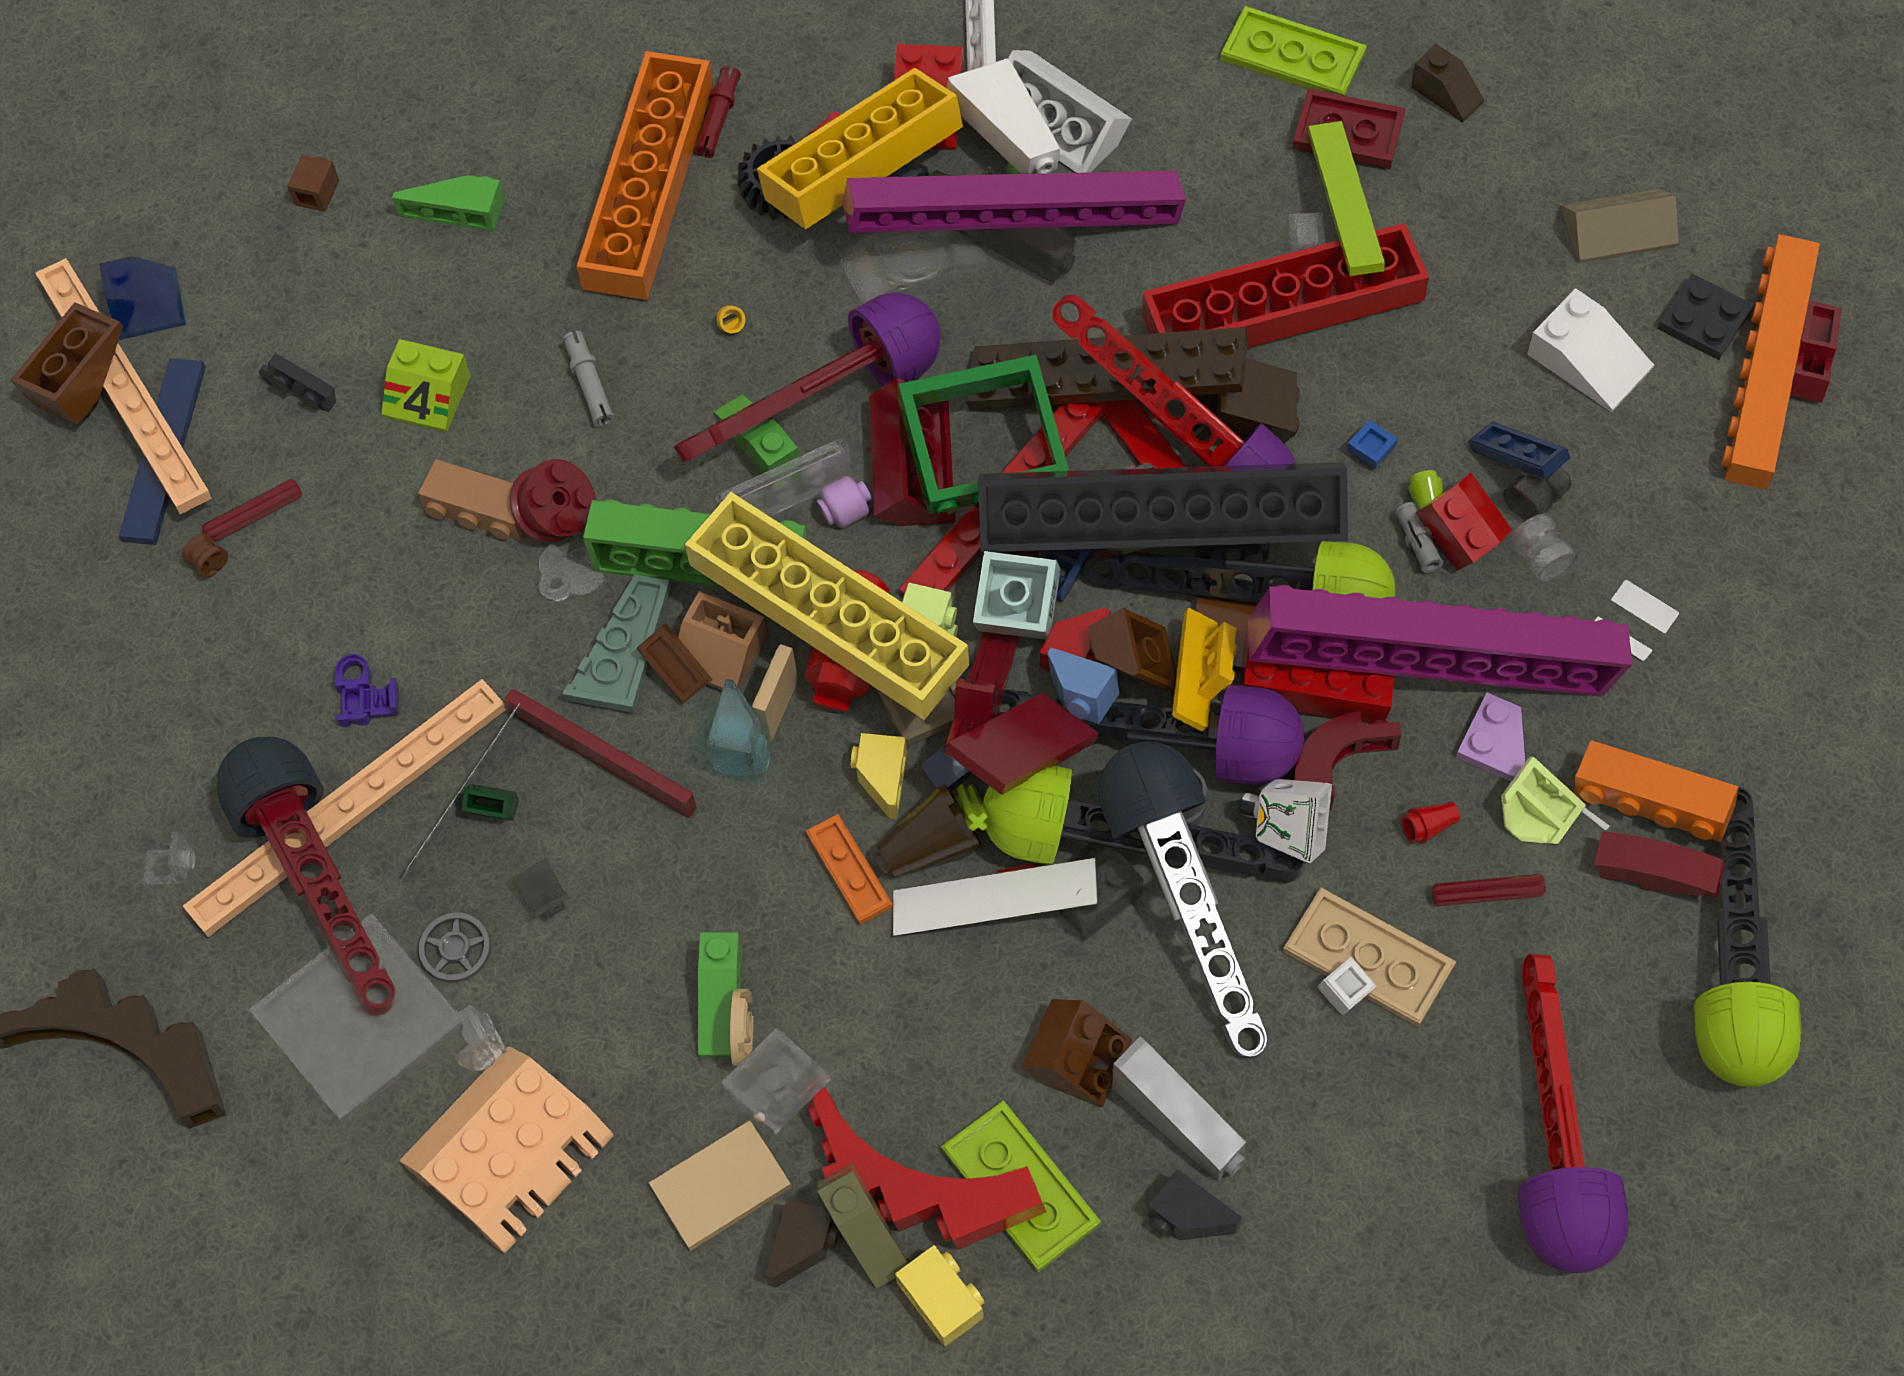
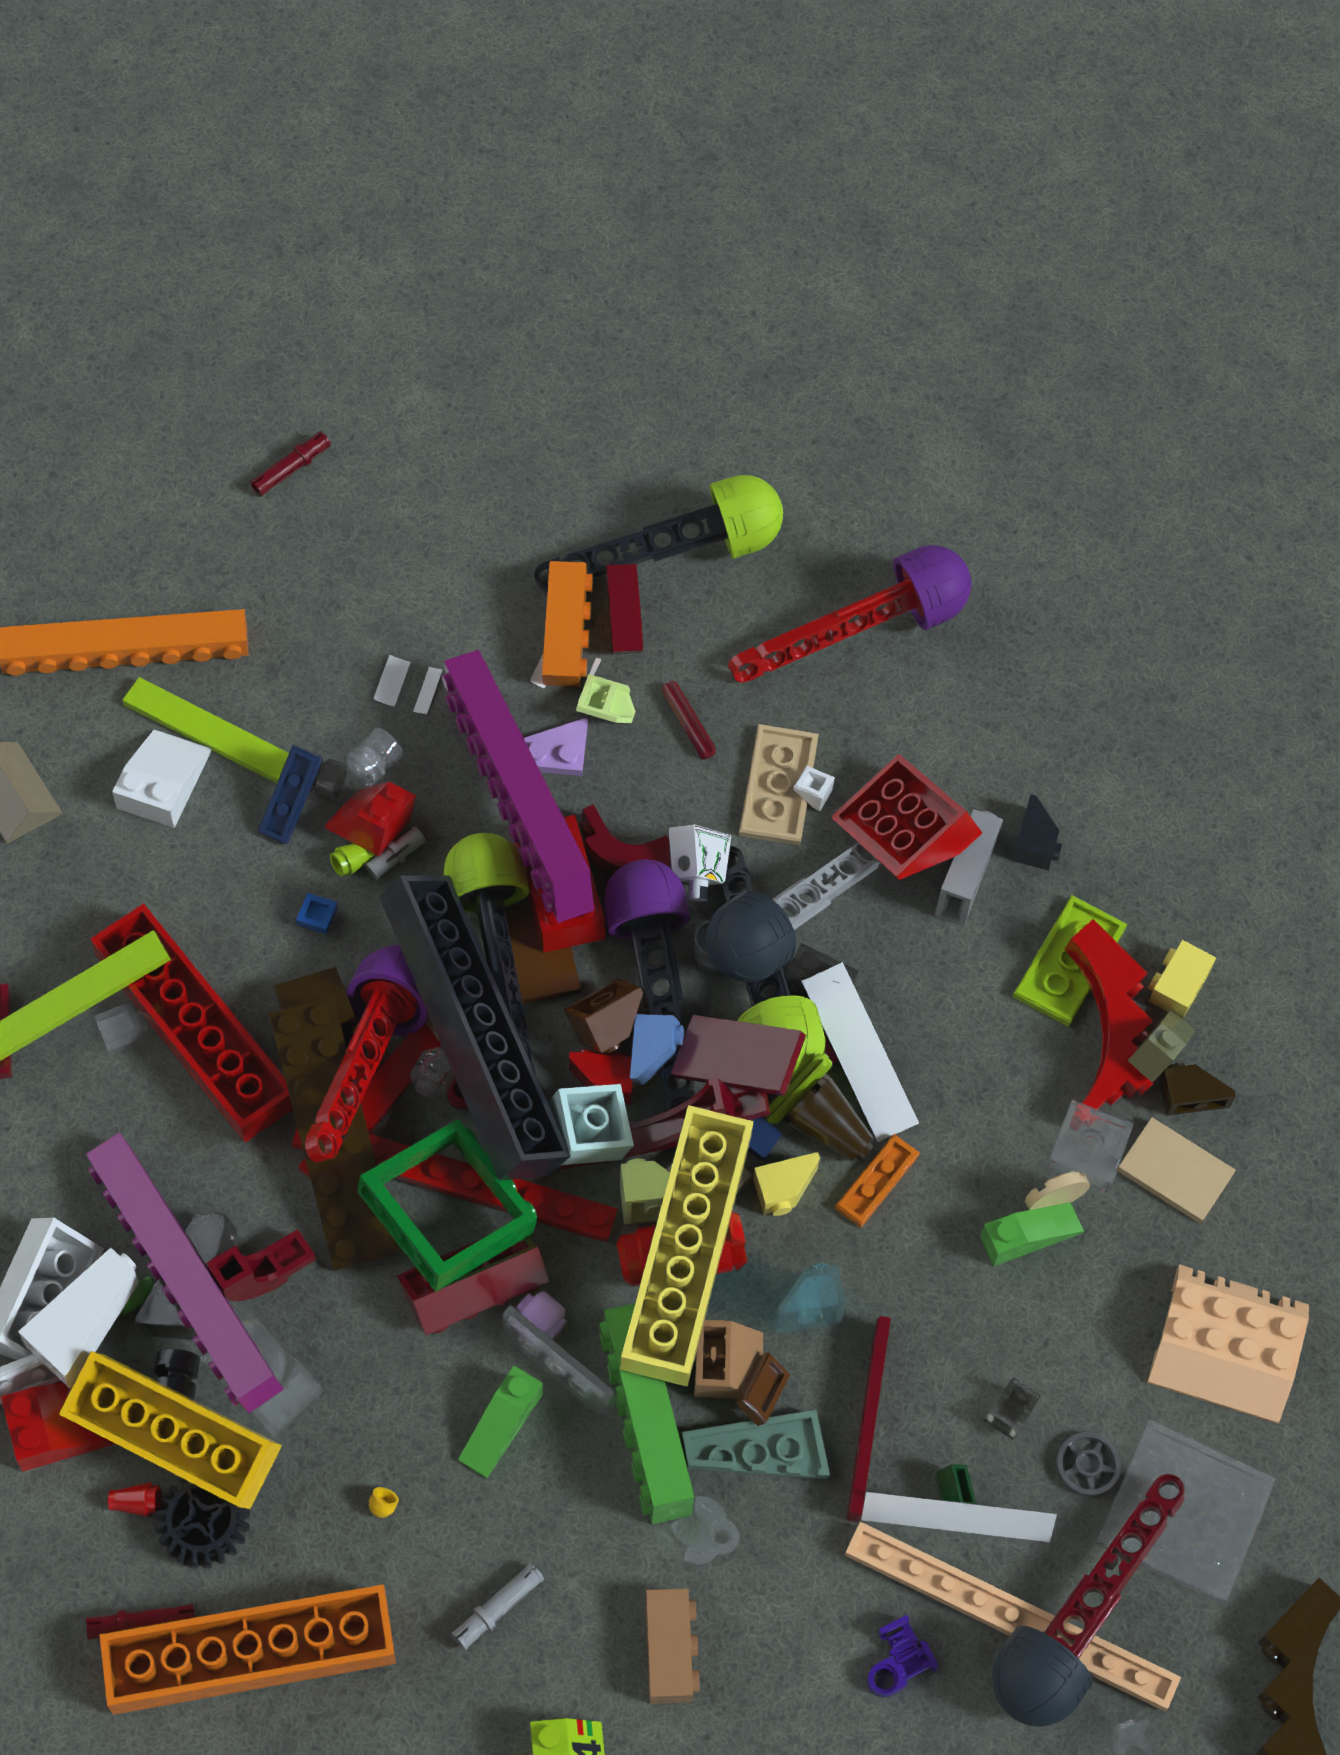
camera: 120 degrees left, 0 degrees up
(482, 1038) = (1154, 1398): clear bracket -> none
(551, 500) = (652, 1563): dark red wheel -> none
(776, 691) = (758, 1286): tan tile -> none
(892, 338) = (369, 1325): piece -> none
(995, 270) = (260, 1272): none -> dark red arch
(1076, 1051) = (954, 953): reddish brown slope -> none
(1203, 667) = (598, 954): yellow bracket -> none
(1252, 1050) = (906, 820): none -> red slope
(1426, 822) = (651, 773): red cone -> none
(1639, 410) = (206, 729): none -> lime tile
(1705, 316) = (90, 703): black plate -> none
(1816, 351) = (101, 607): dark red slope -> none

